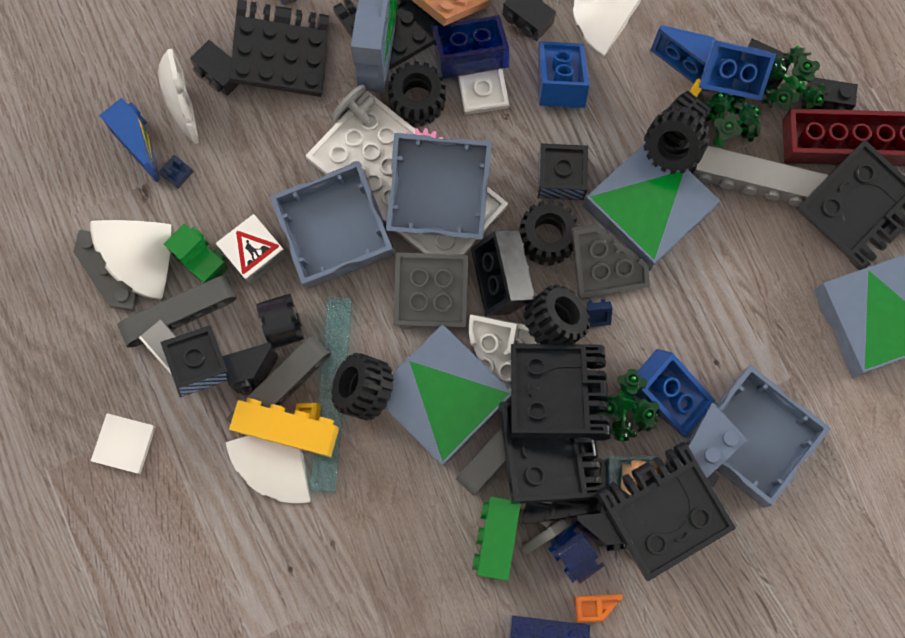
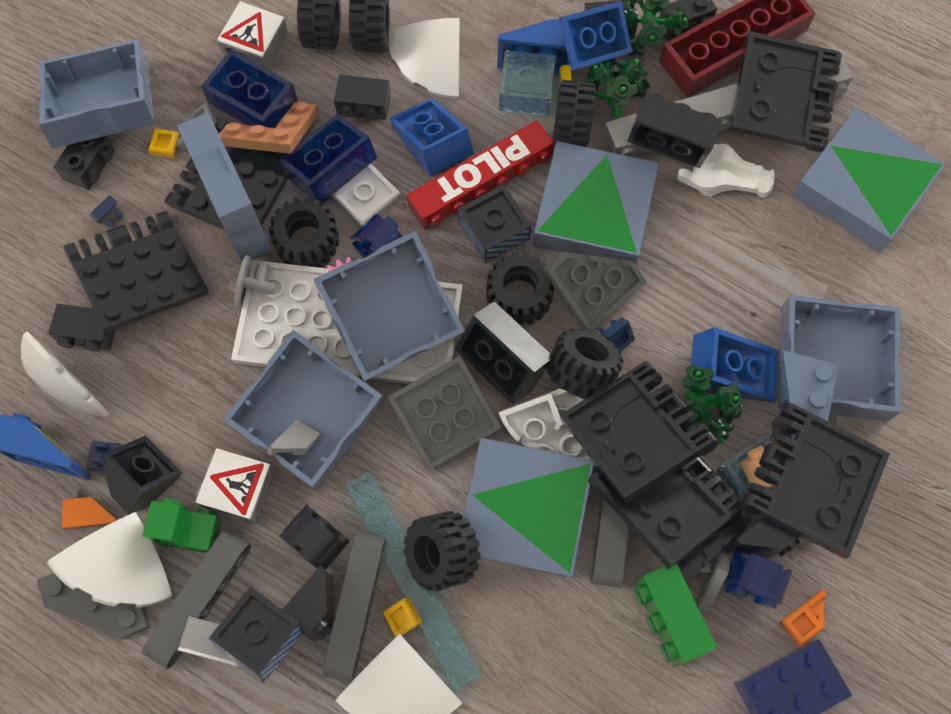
camera: 30 degrees left, 5 degrees down
(138, 204) = (84, 513): none -> orange tile
(190, 198) = (138, 474): none -> black slope
(284, 428) = (391, 644): yellow brick -> none
(312, 242) = (295, 439): none -> light grey tile
(467, 126) = (375, 234): none -> clear blue brick
(578, 127) = (480, 174): none -> red brick
(662, 75) = (526, 83): none -> clear light blue container
(673, 158) = (595, 147): black tyre -> none
(747, 181) = (674, 130): none -> black brick
(771, 237) = (726, 172): none -> white animal

